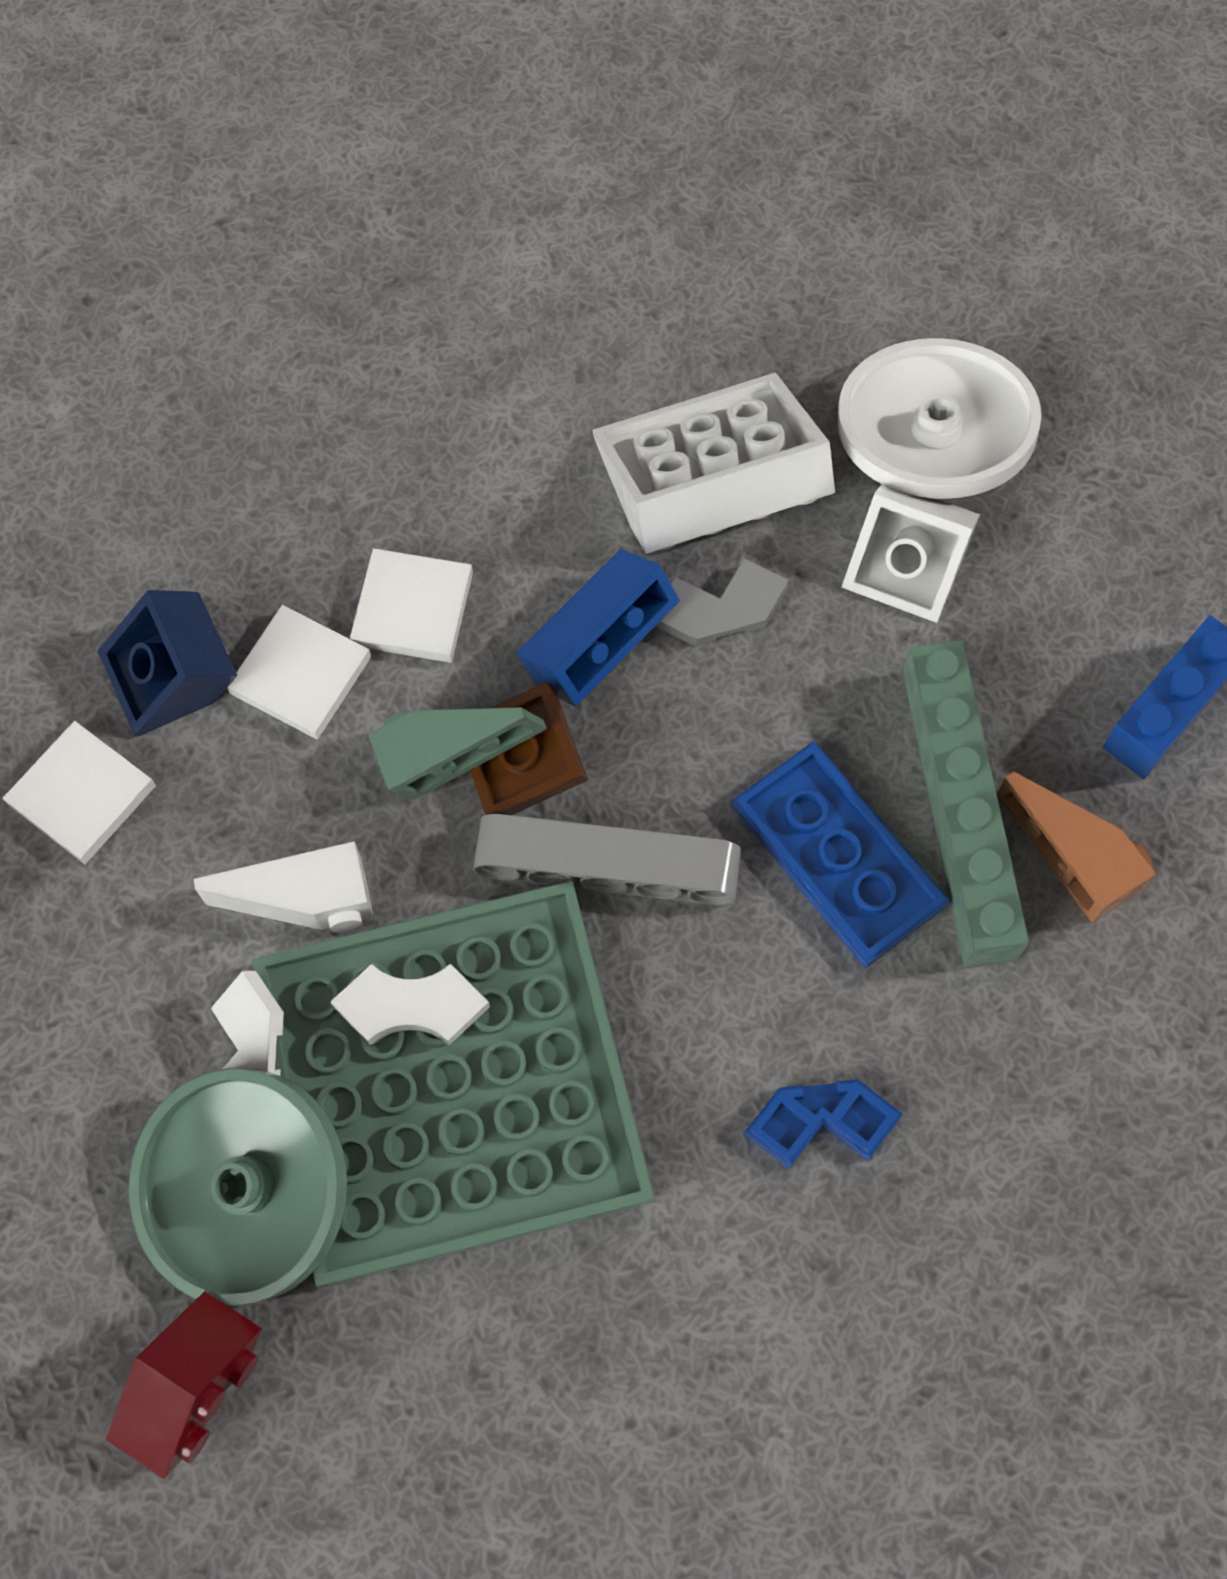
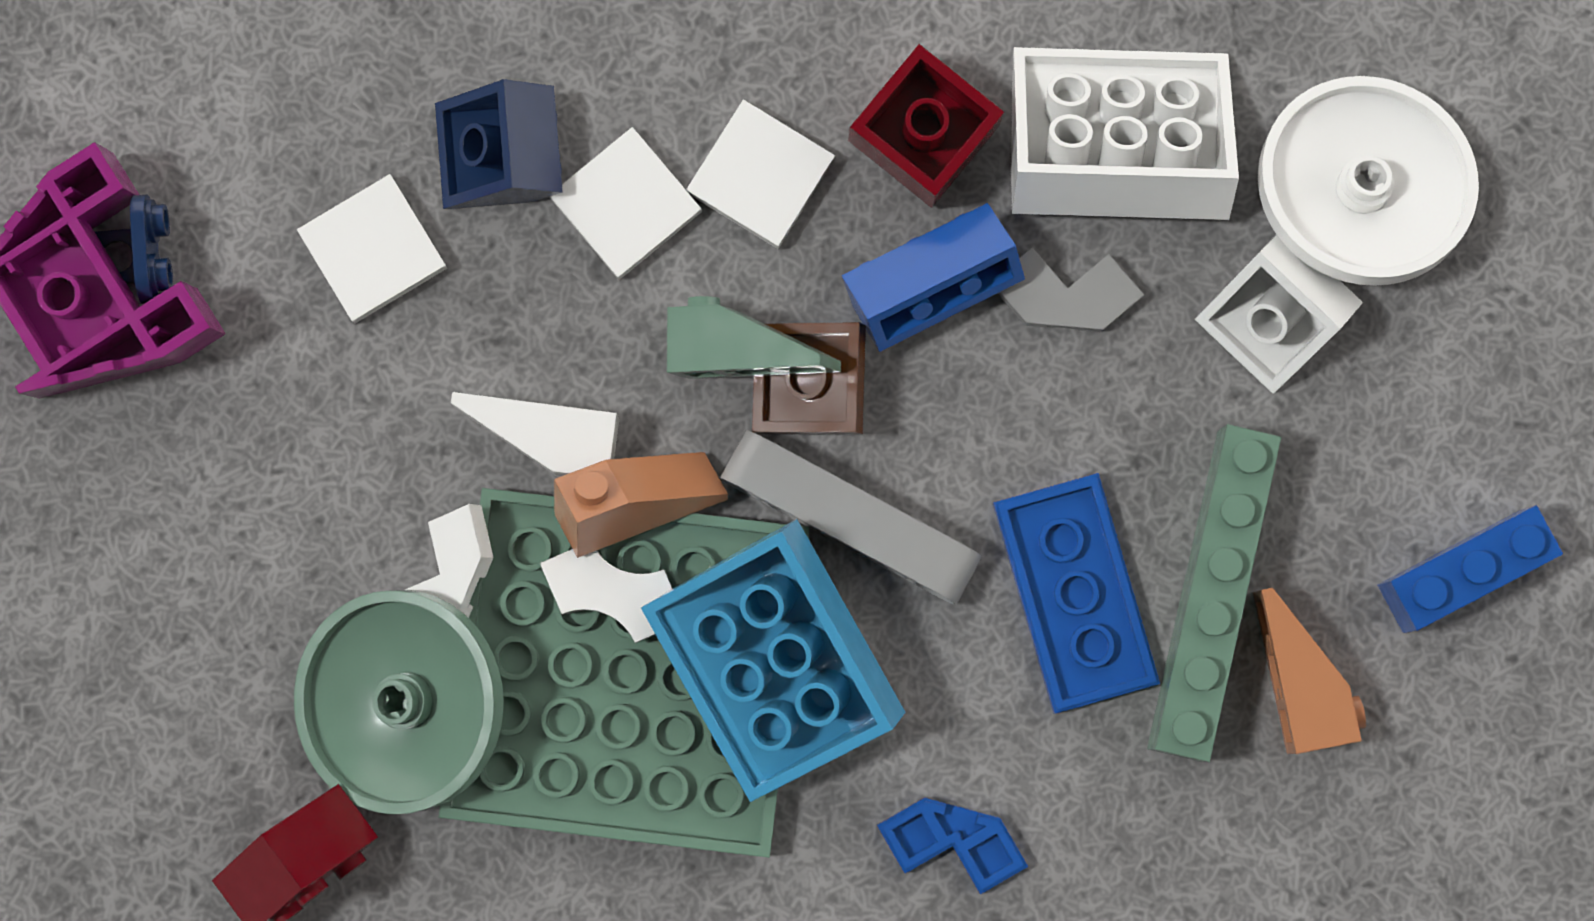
camera: 15 degrees right, 15 degrees up
(392, 910) = (632, 496): none -> nougat slope
(540, 507) = (925, 125): none -> dark red brick
(584, 1007) = (774, 661): none -> dark azure slope

